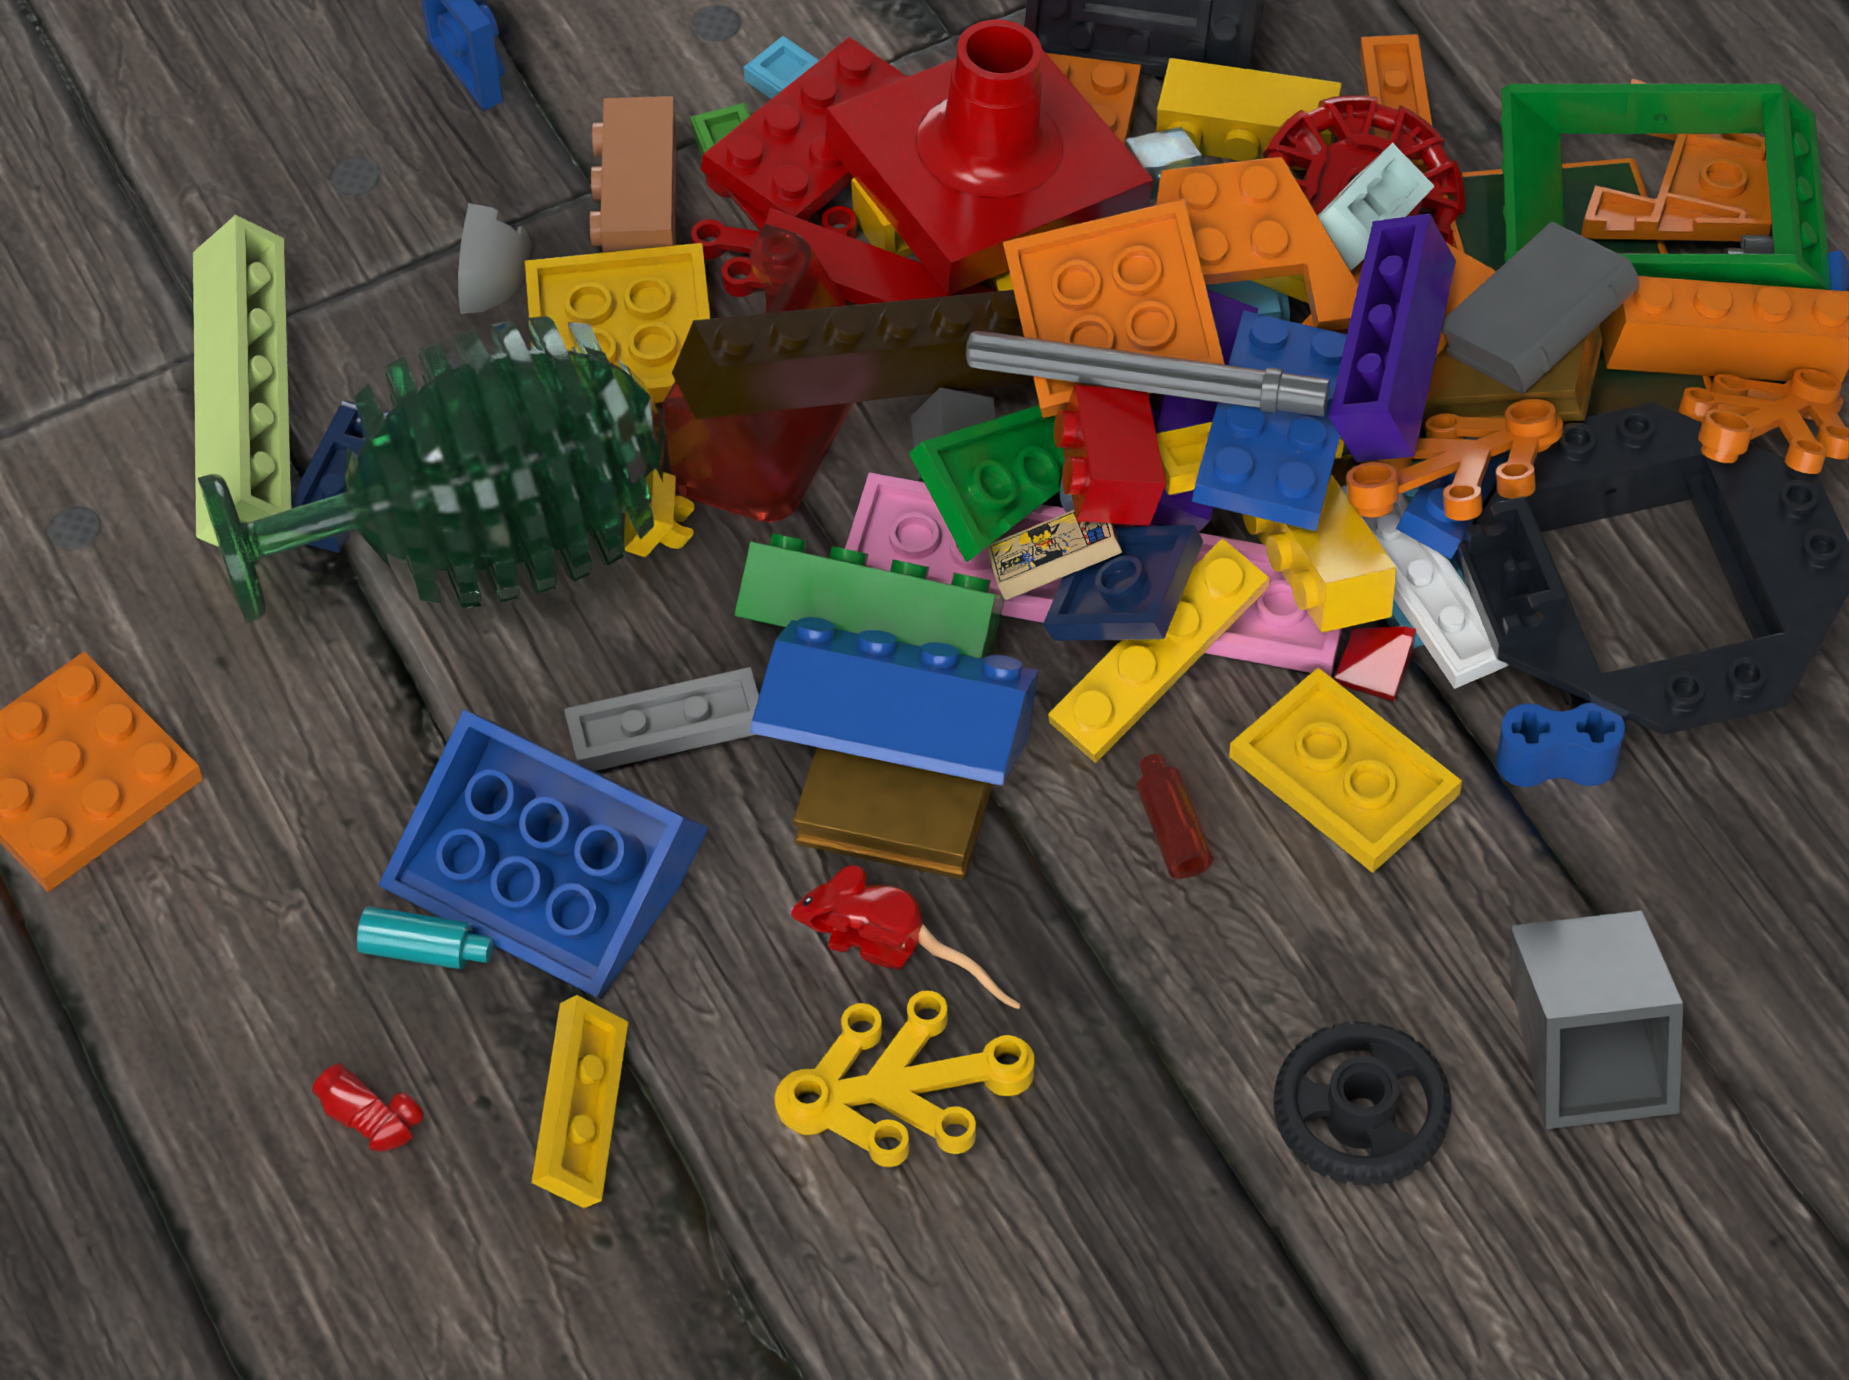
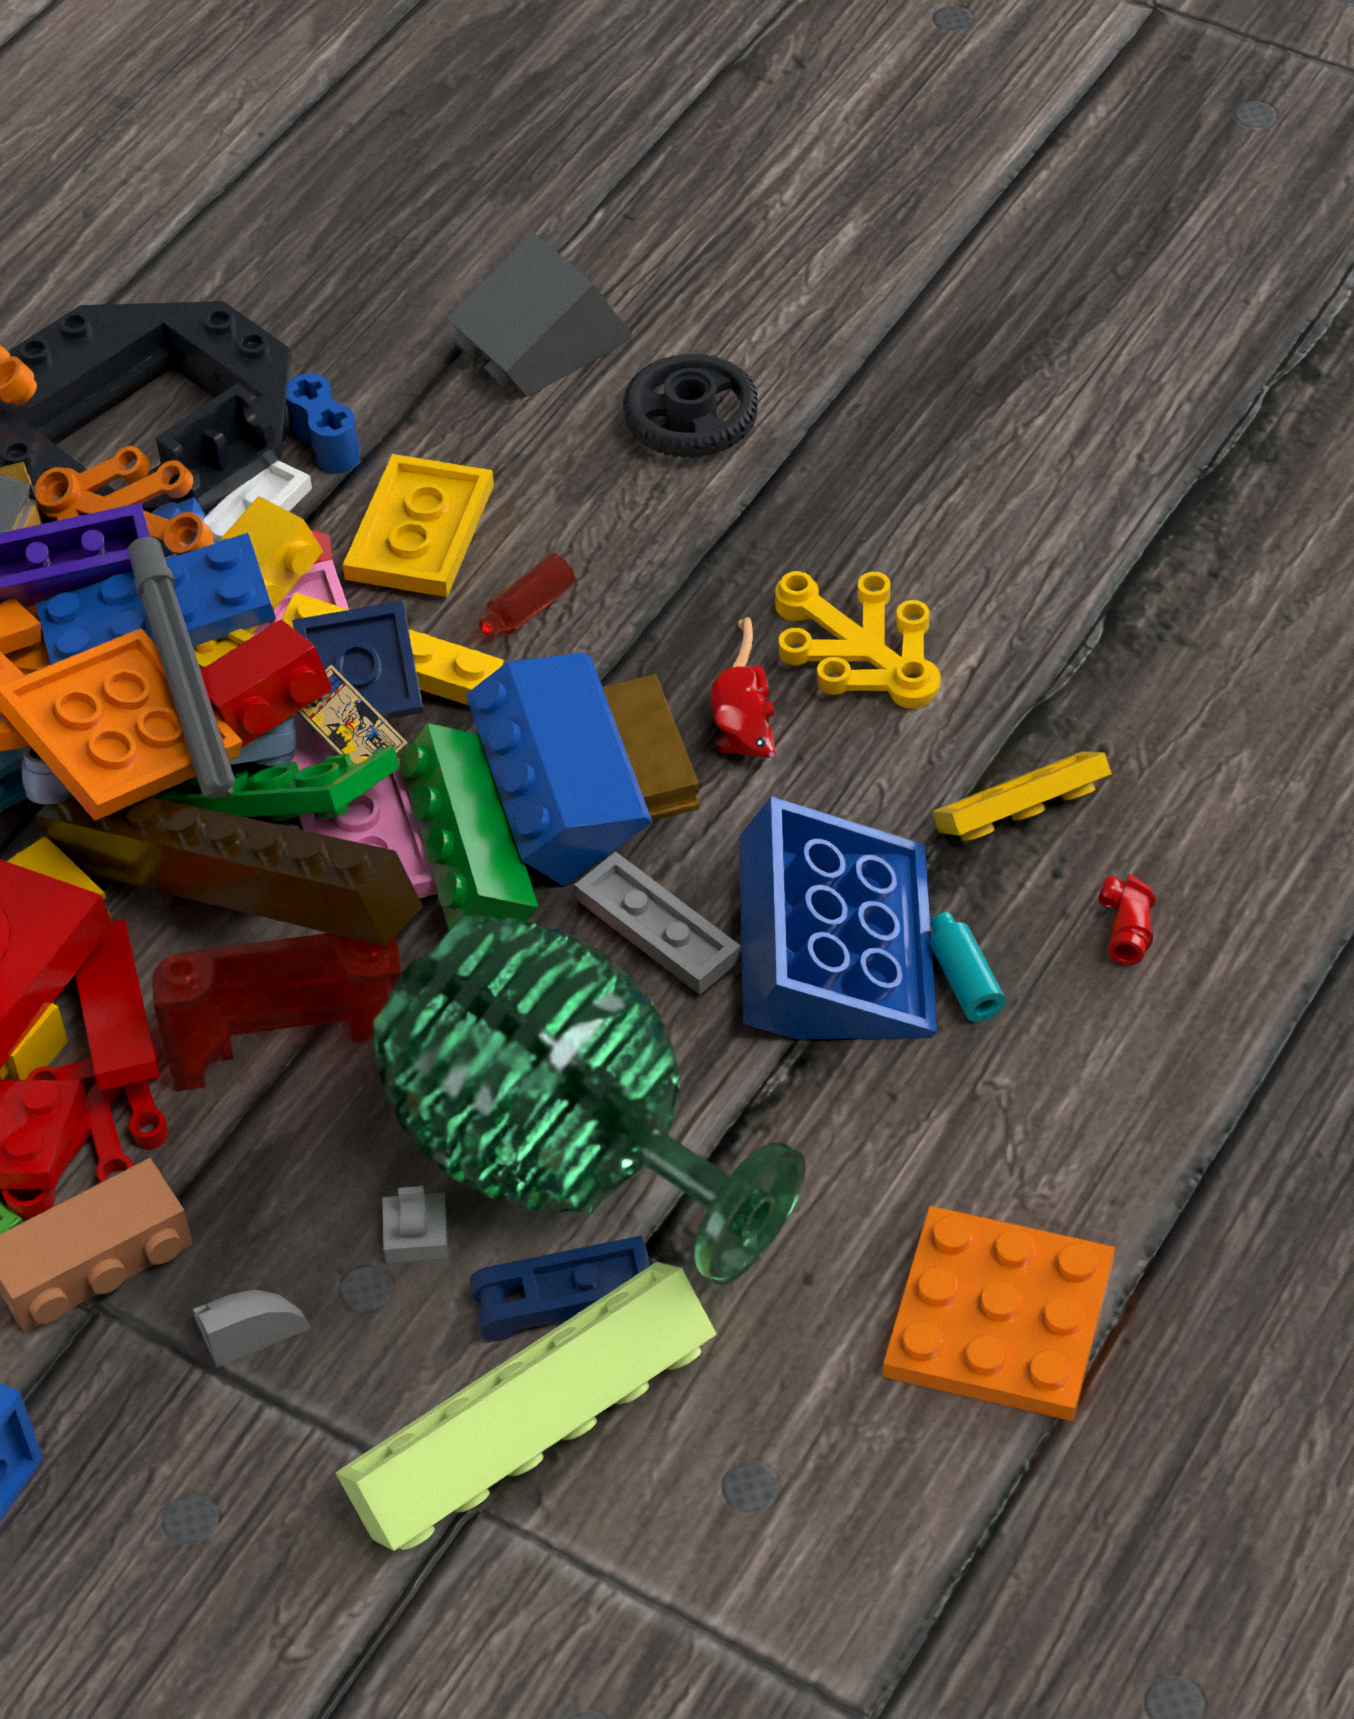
camera: 120 degrees left, 5 degrees down
(632, 300) = (270, 1171): yellow plate -> none

